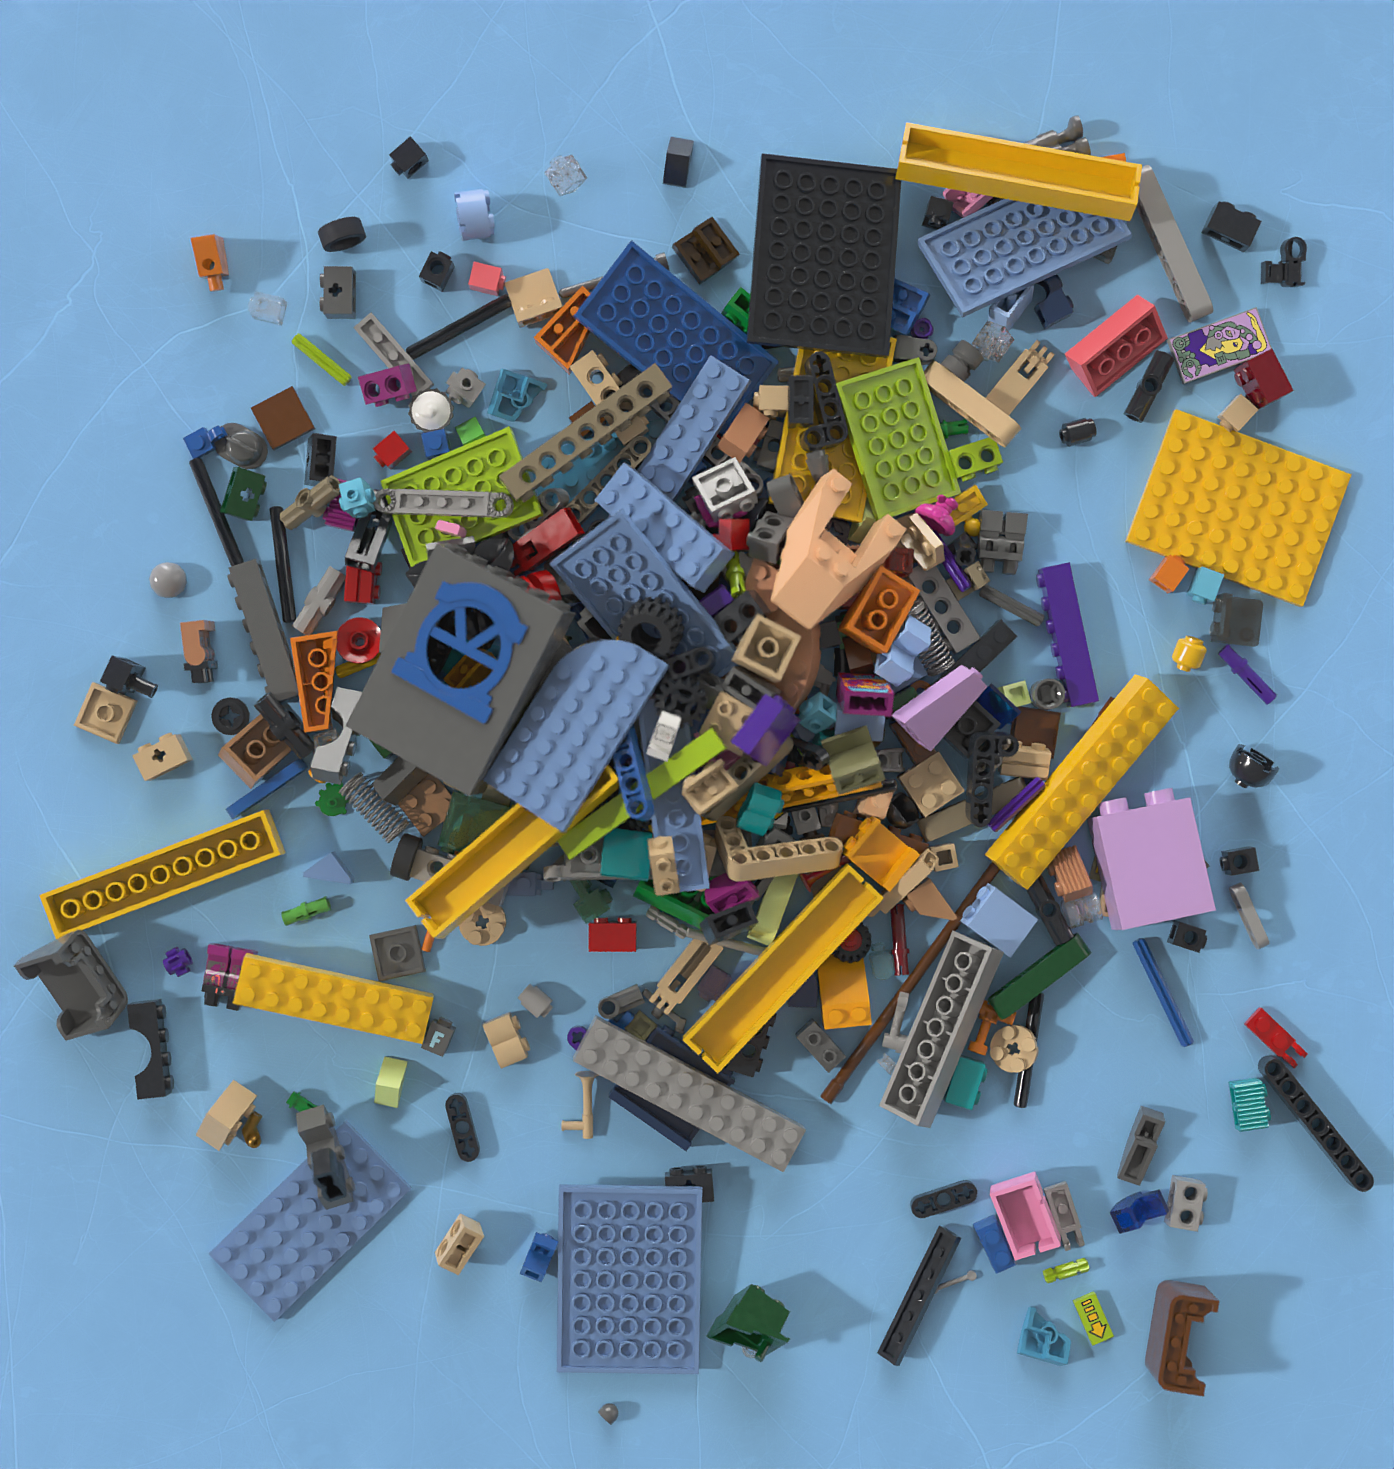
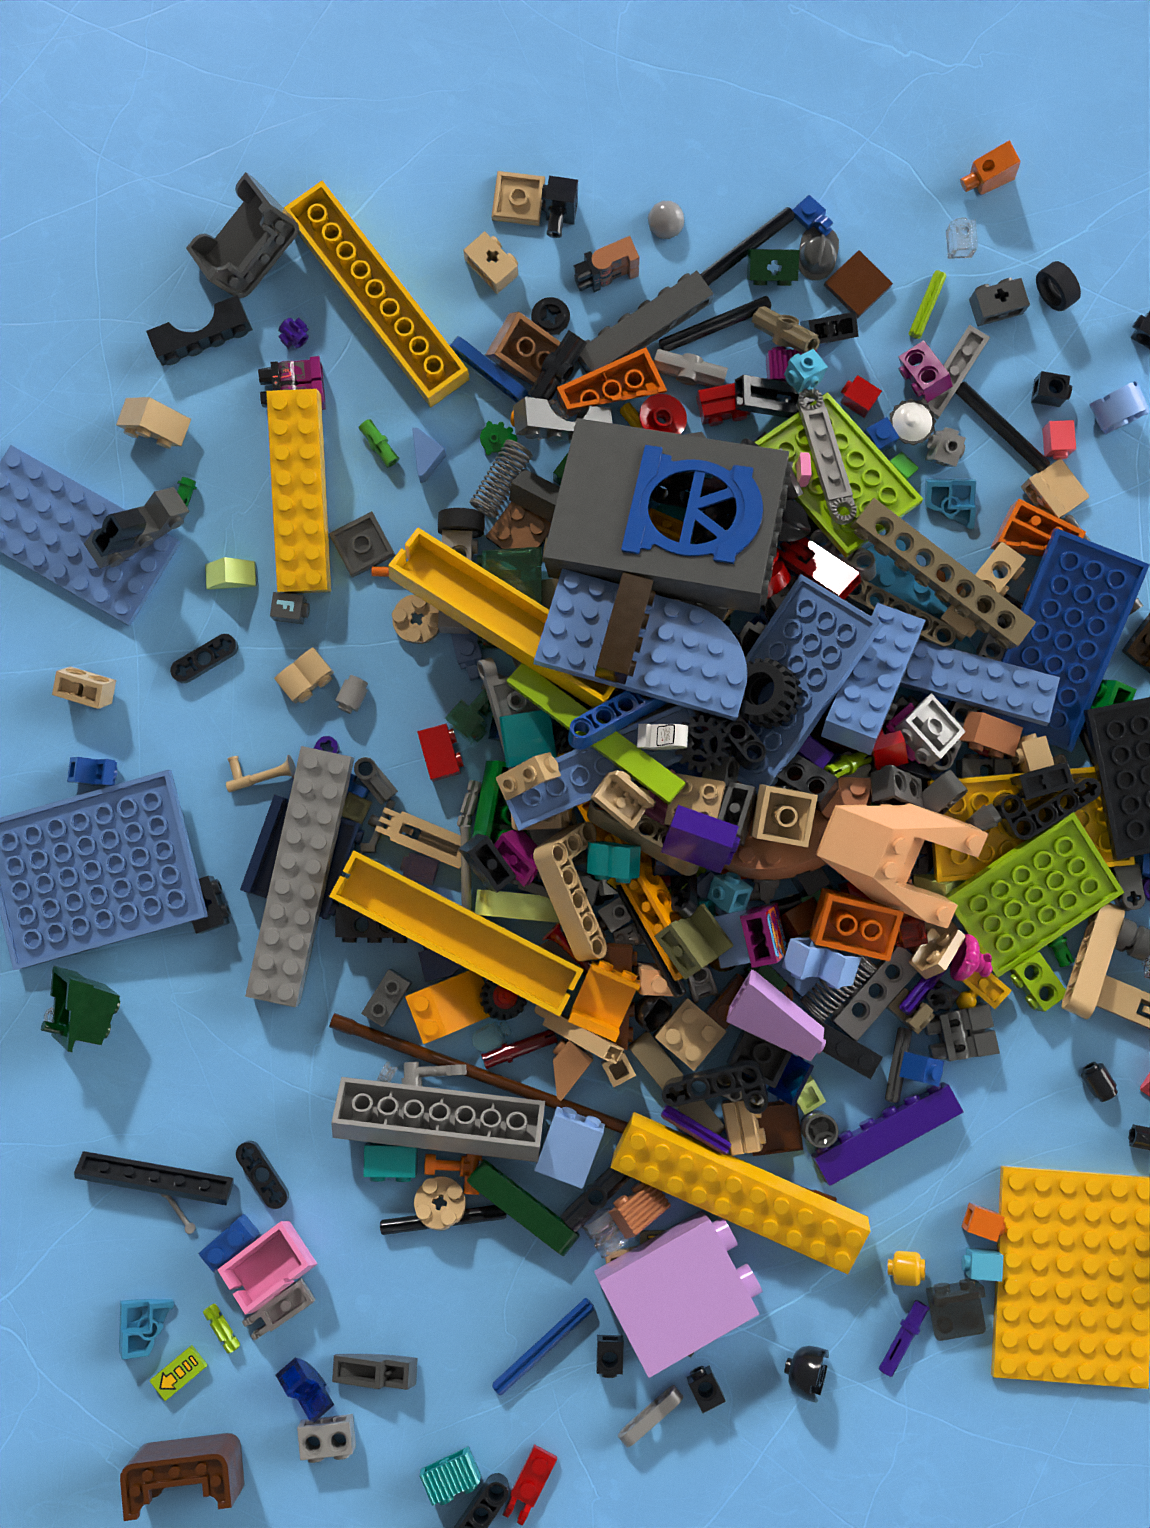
camera: 65 degrees right, 5 degrees down
(250, 1130) = (144, 451): pearl gold arm -> none
(557, 742) = (624, 627): none -> dark brown brick
(1021, 587) = (921, 1068): none -> blue brick

